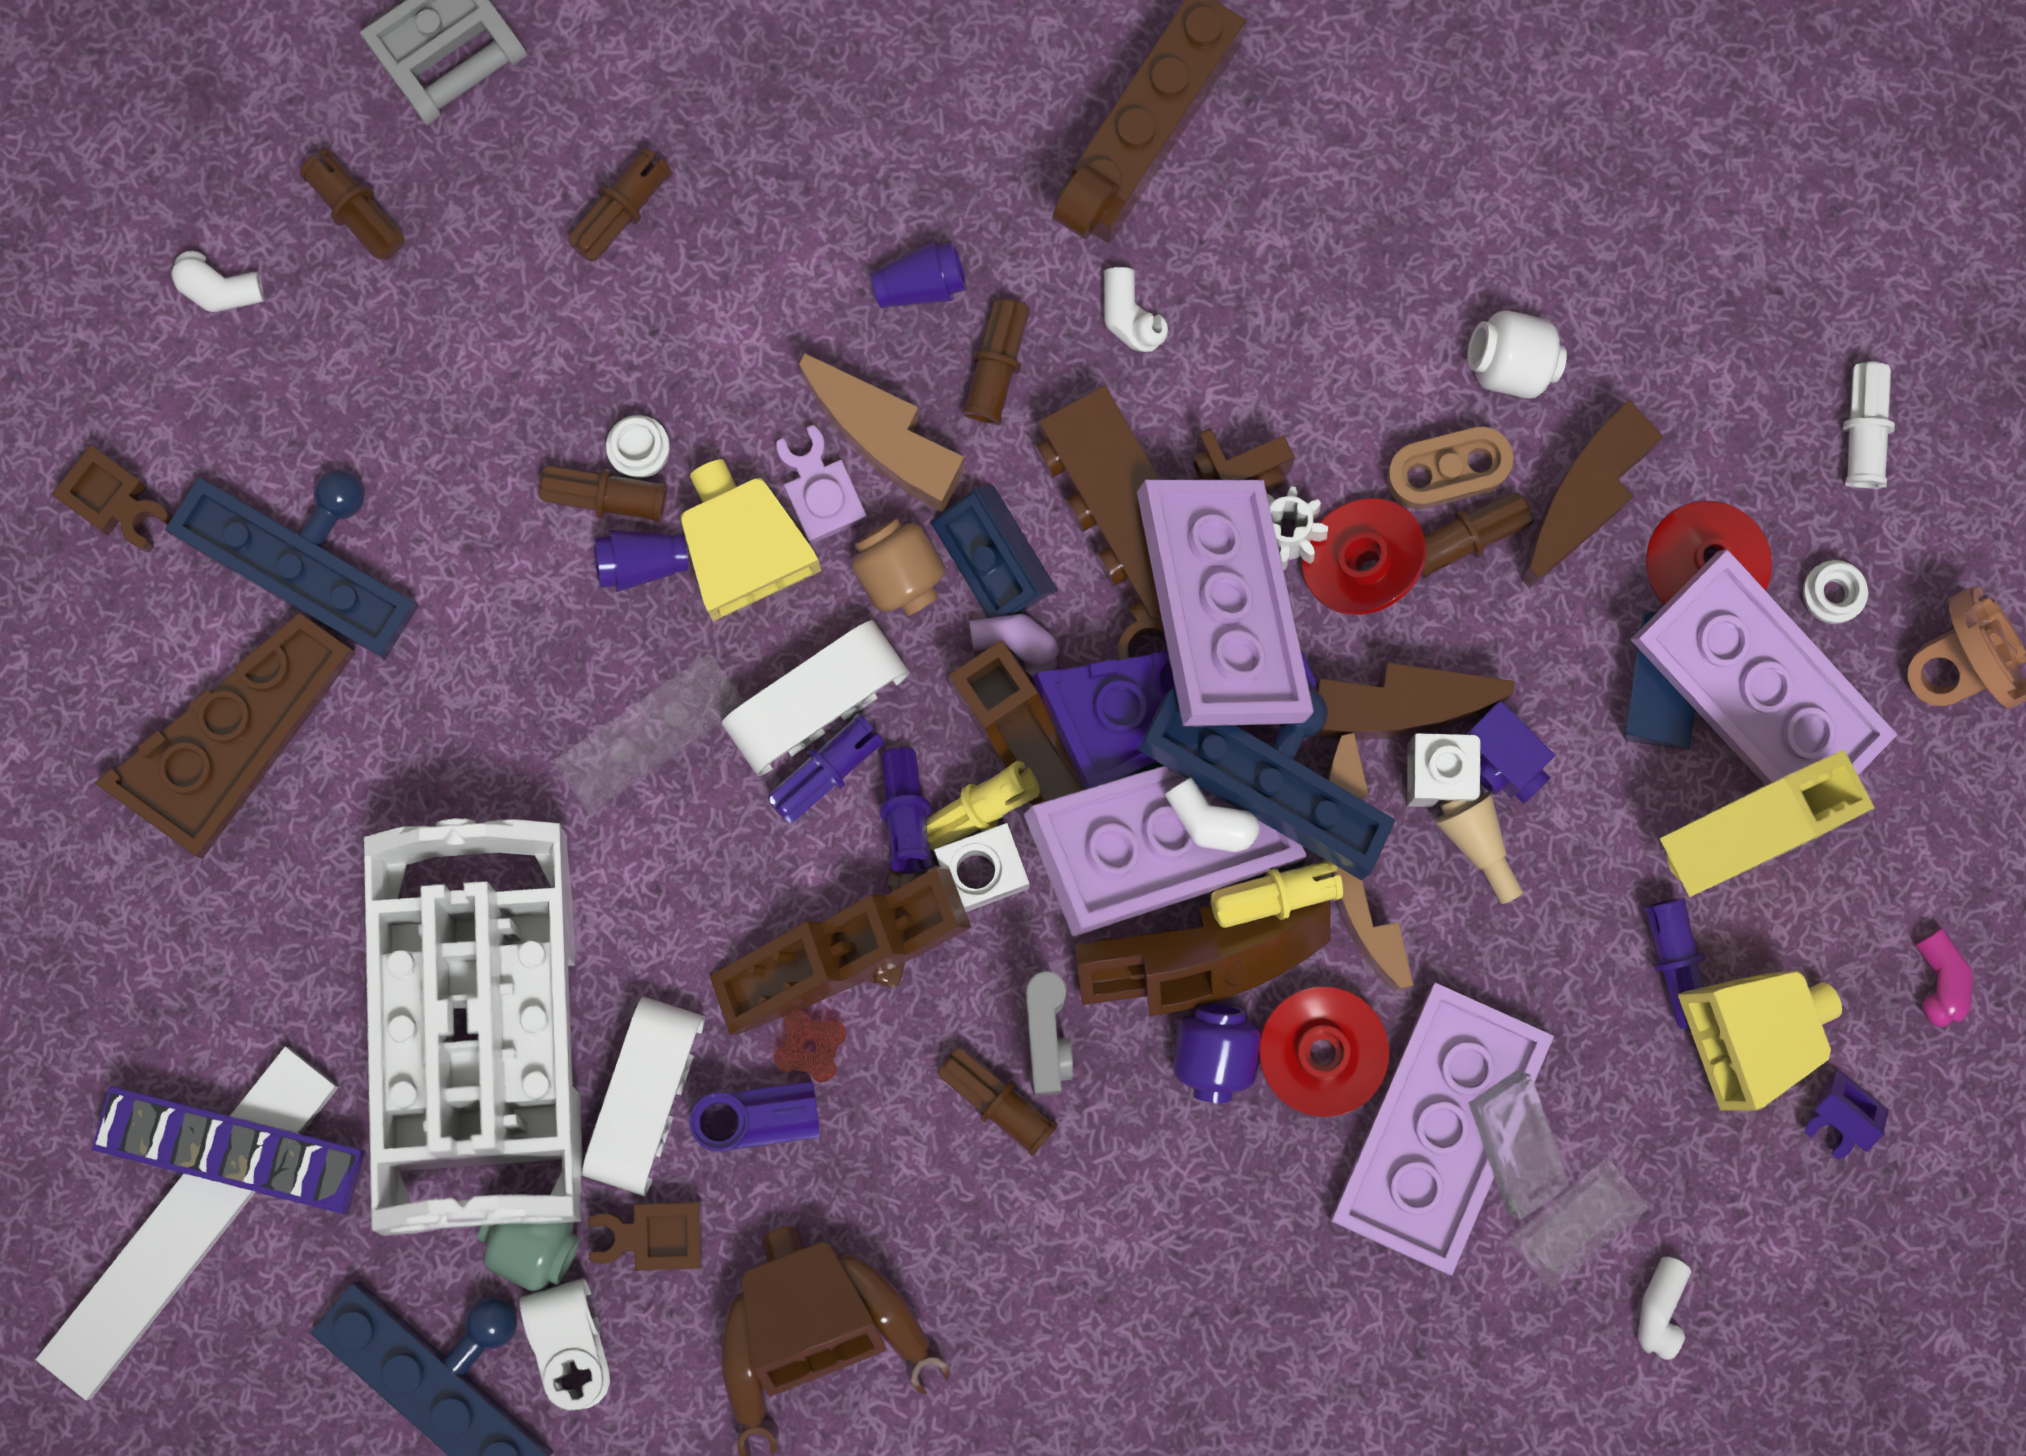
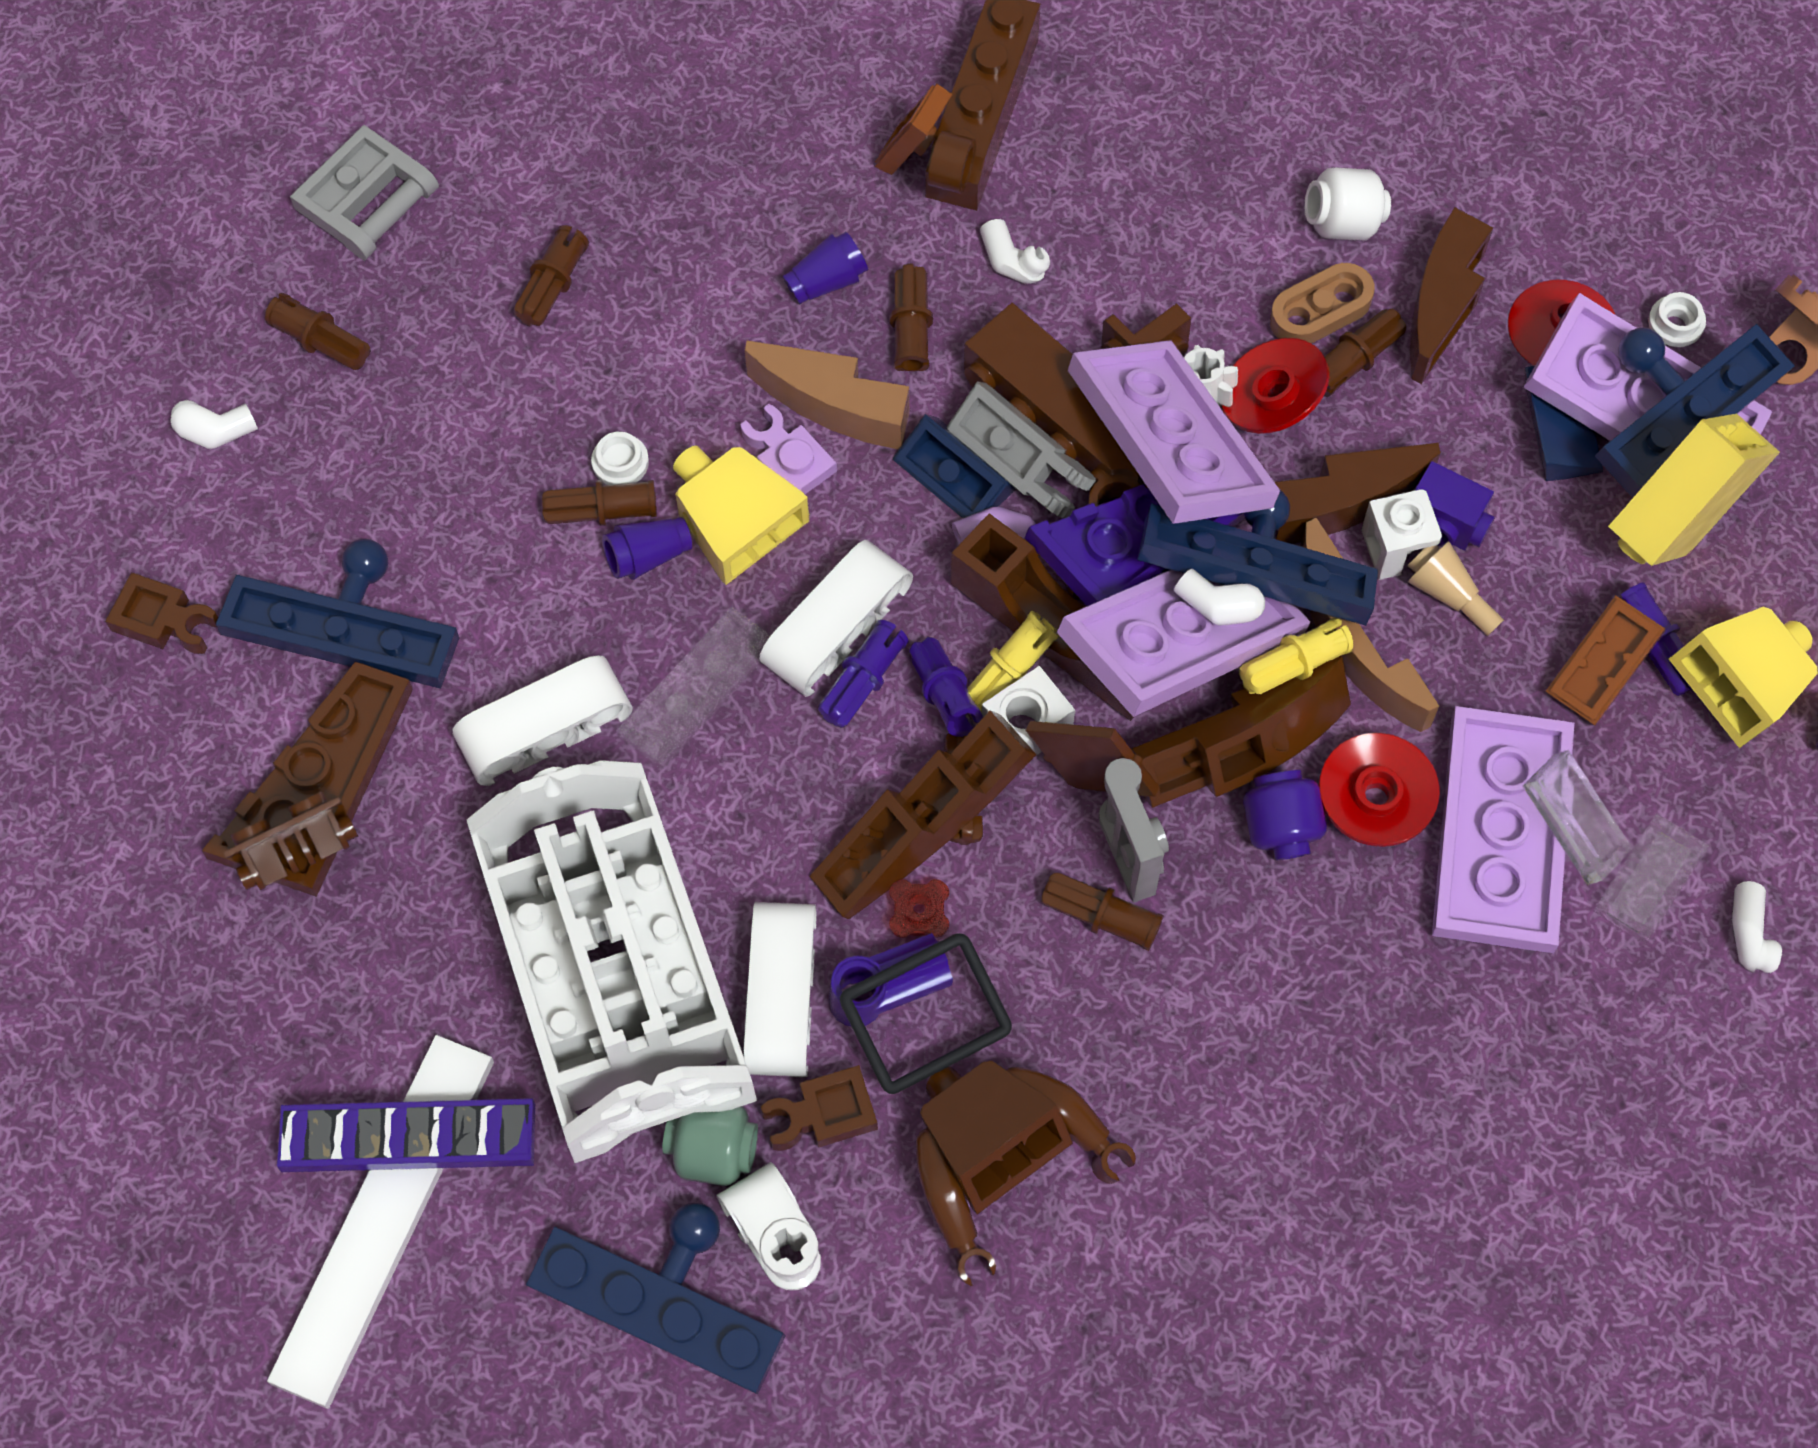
camera: 15 degrees left, 15 degrees down
(149, 804) = (257, 840): none -> reddish brown hinge
(477, 727) = (541, 717): none -> white beam
(765, 1120) = (948, 1059): none -> black piece
(898, 567) = (877, 494): medium nougat head -> none
(1027, 945) = (1084, 754): none -> reddish brown piece
(1059, 140) = (914, 131): none -> dark orange plate
(1063, 560) = (1017, 448): none -> light grey hinge
(1612, 975) = (1605, 660): none -> dark orange plate
(1804, 718) = (1715, 390): none -> dark blue plate
(1869, 425) = (1656, 190): white axle -> none

